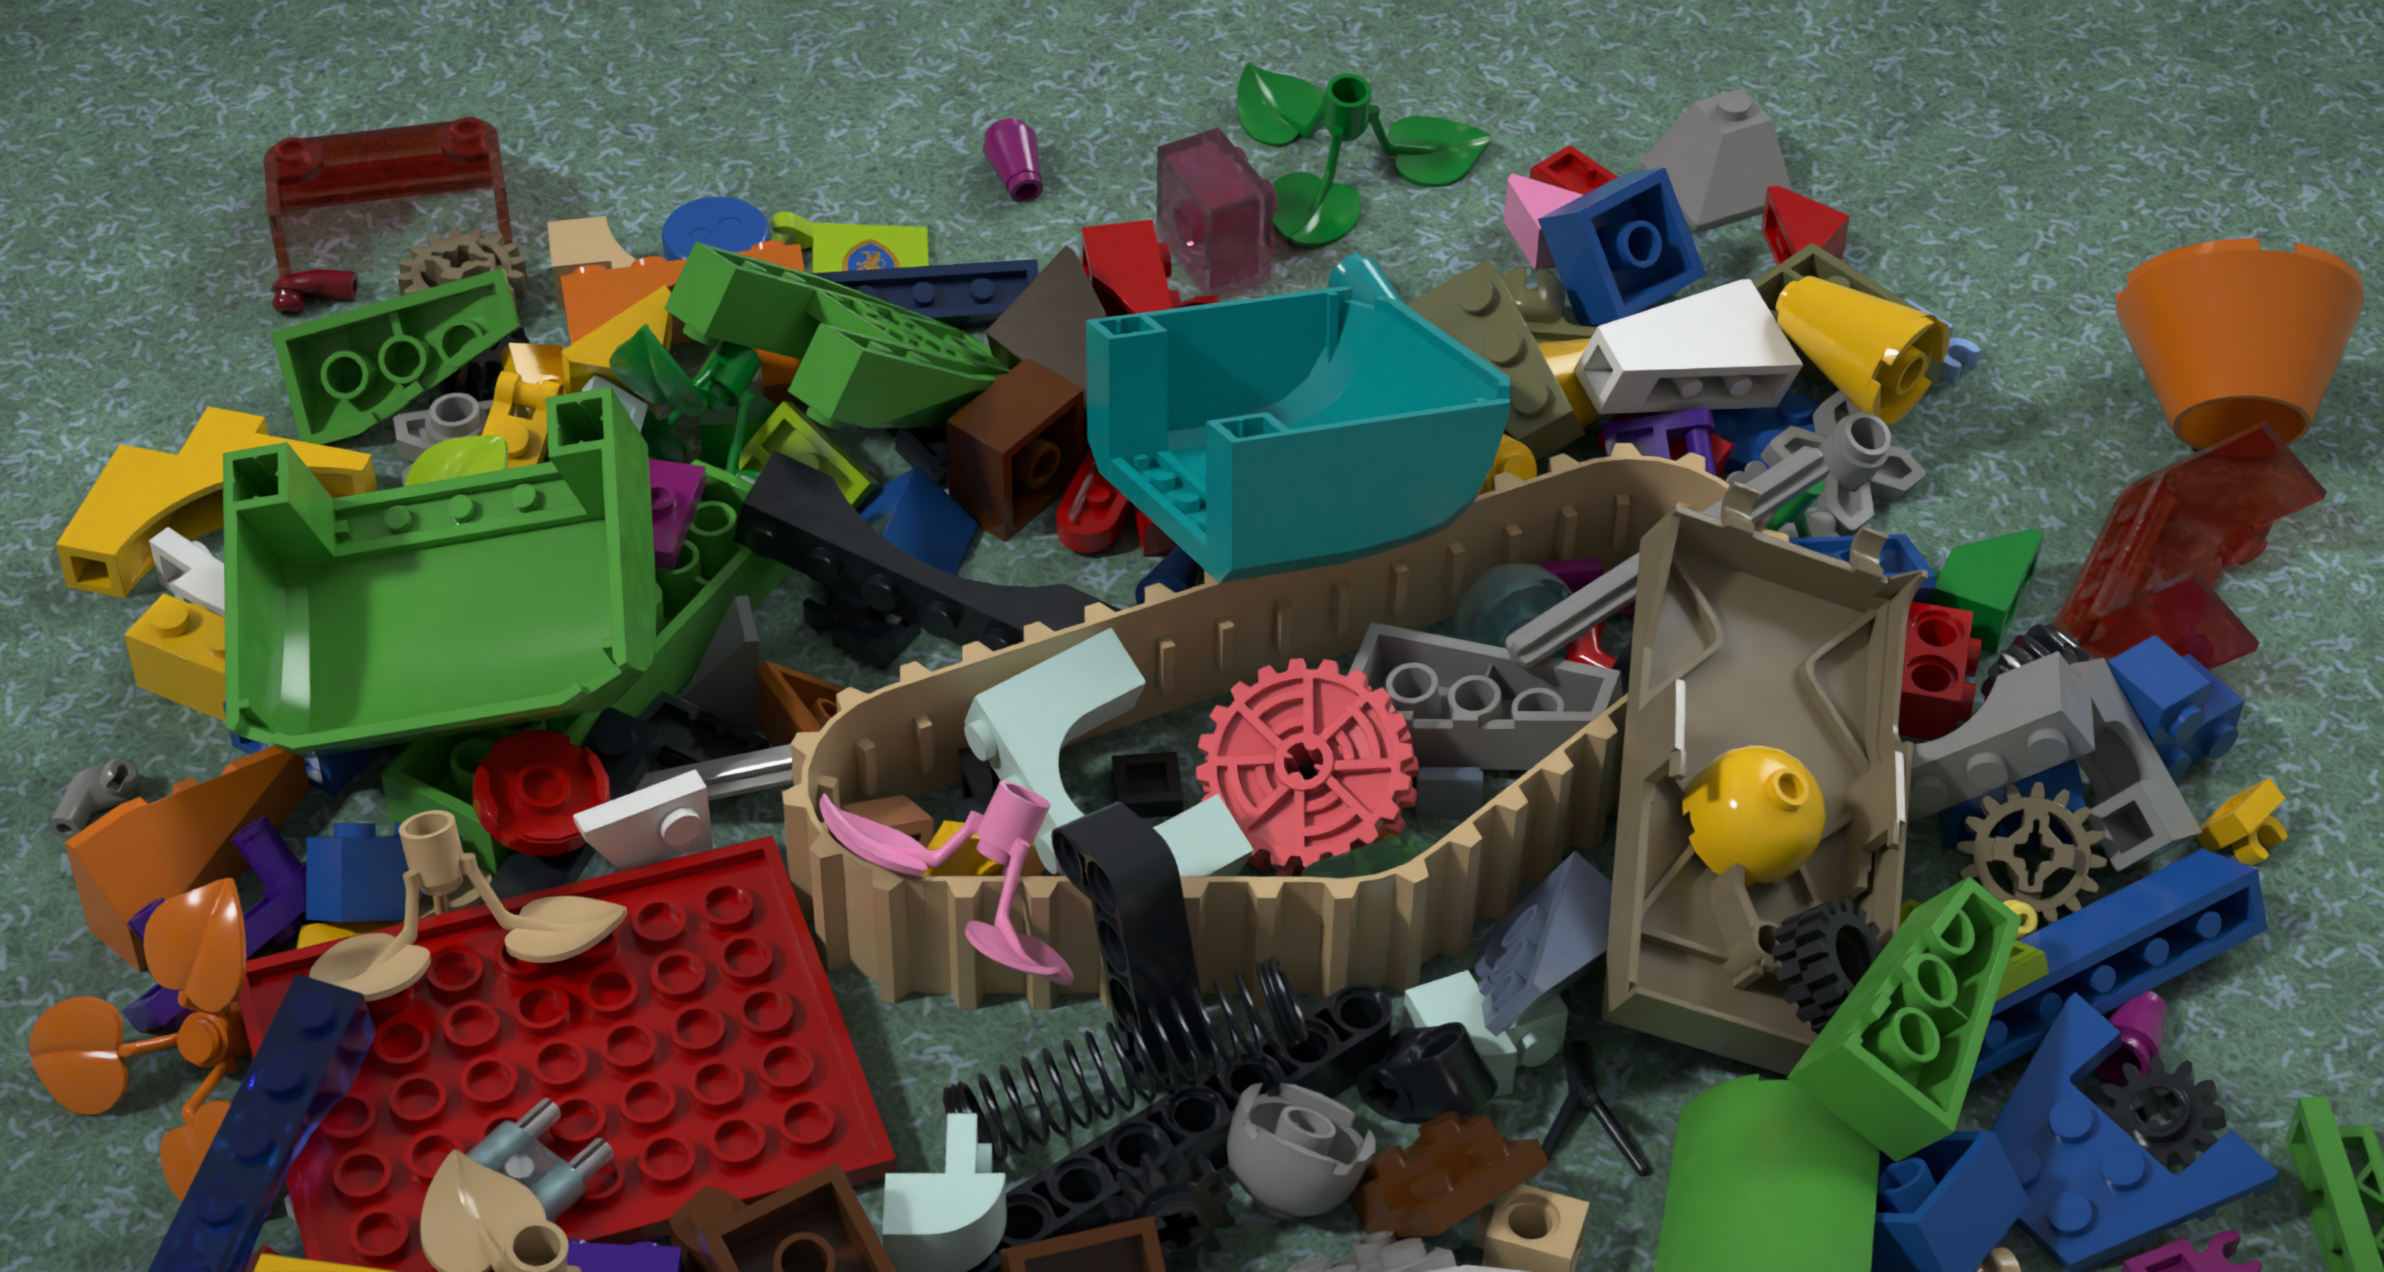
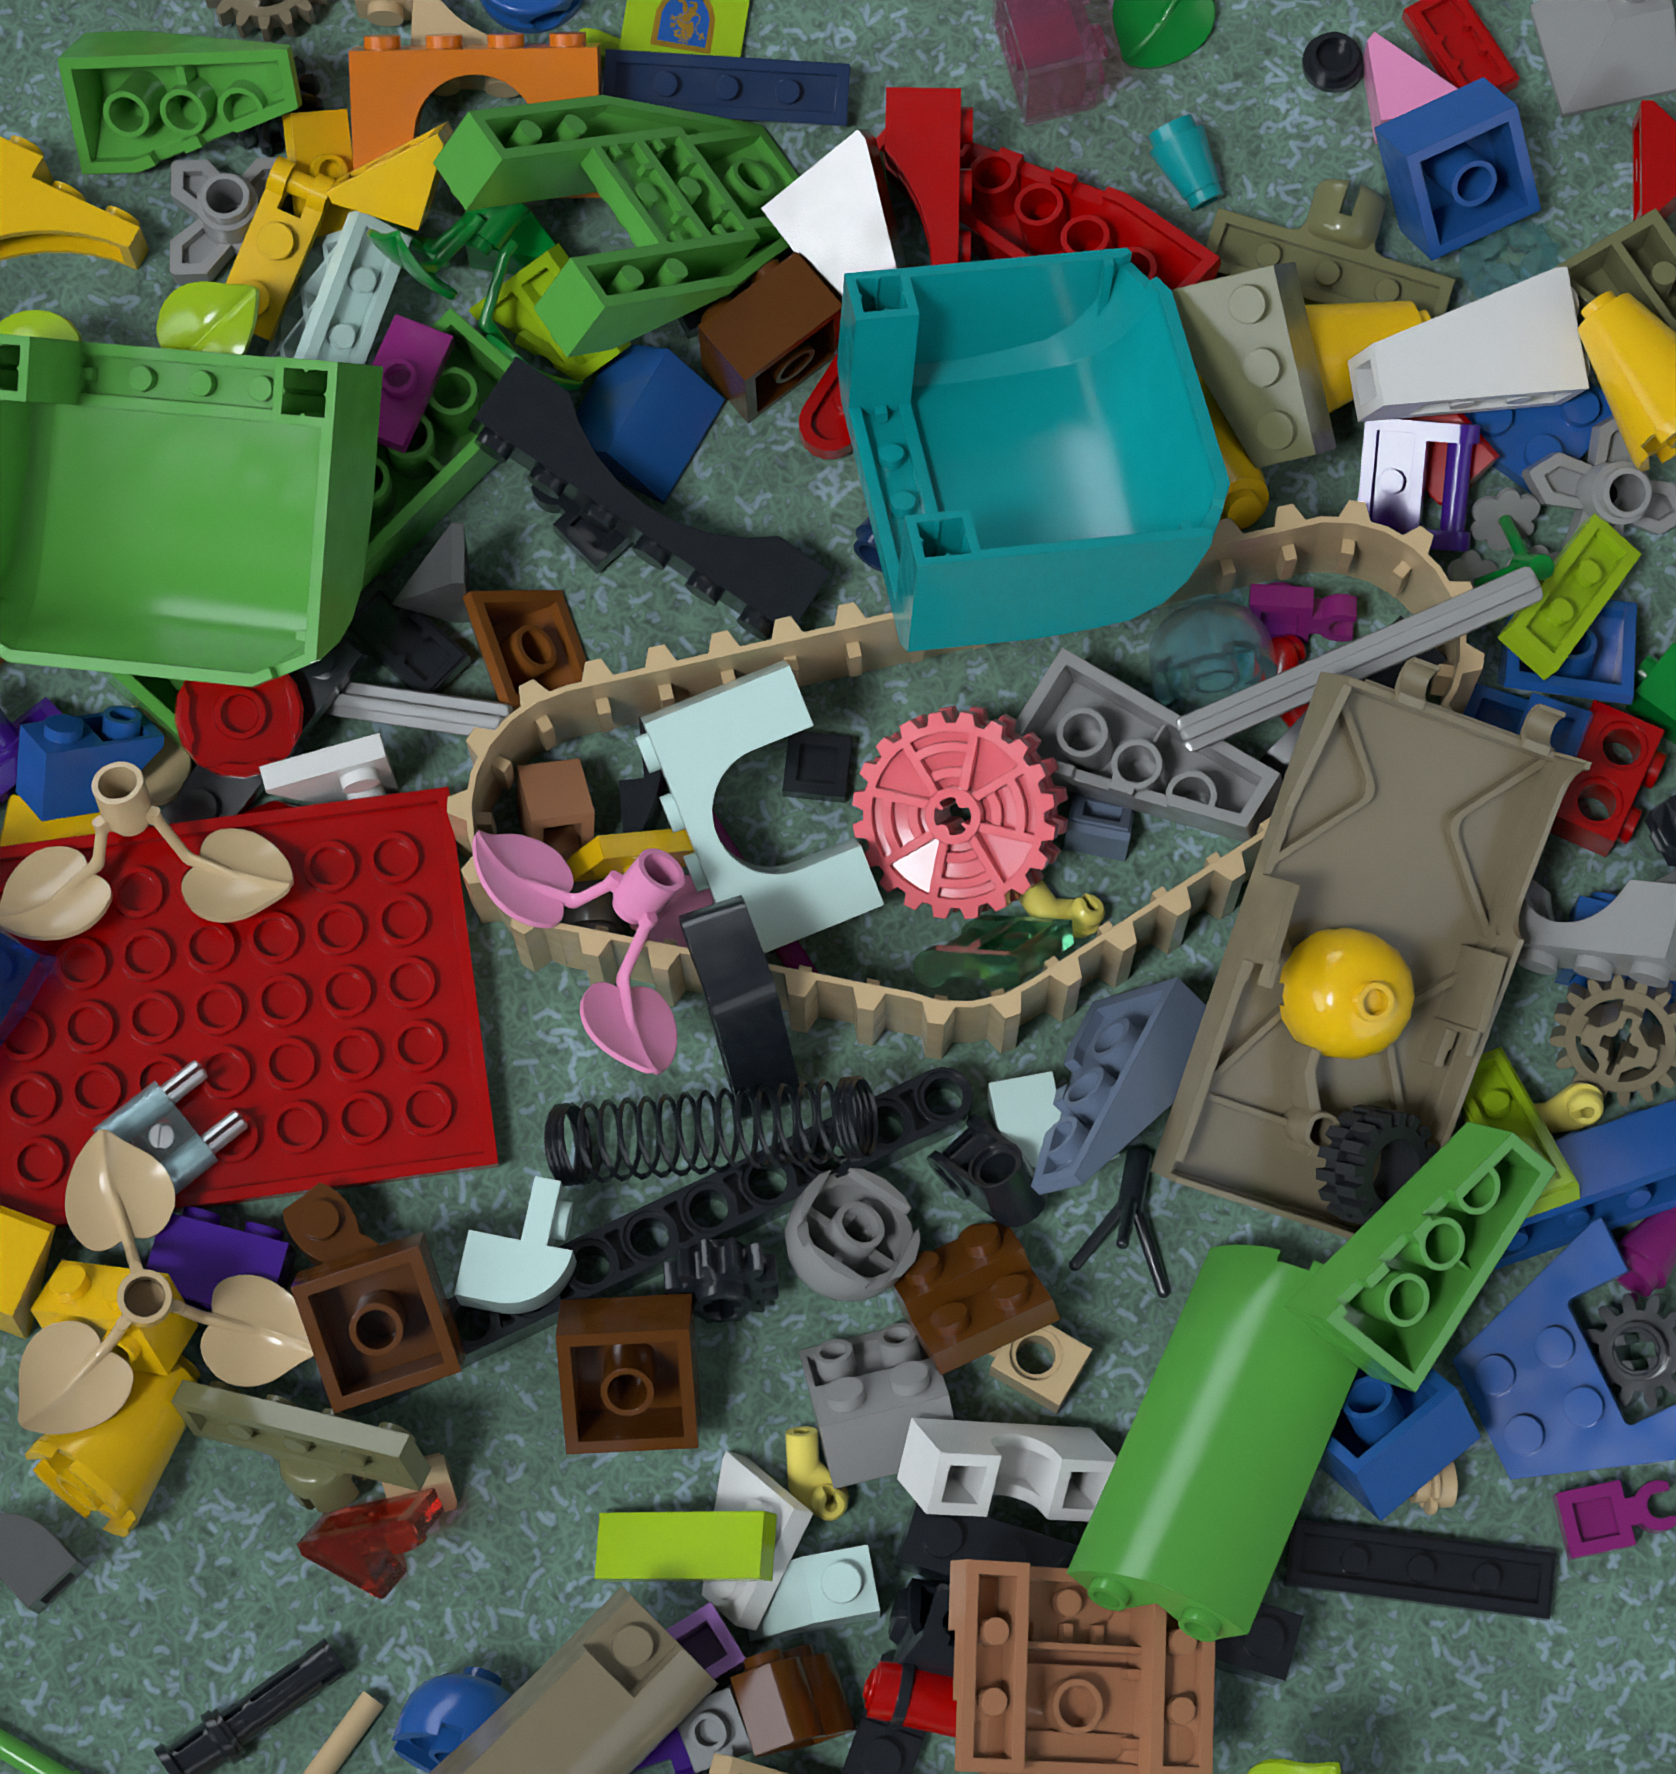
camera: 15 degrees right, 30 degrees up
(1478, 214) = (1332, 62): none -> black plate
(1840, 512) = (1573, 596): none -> lime plate

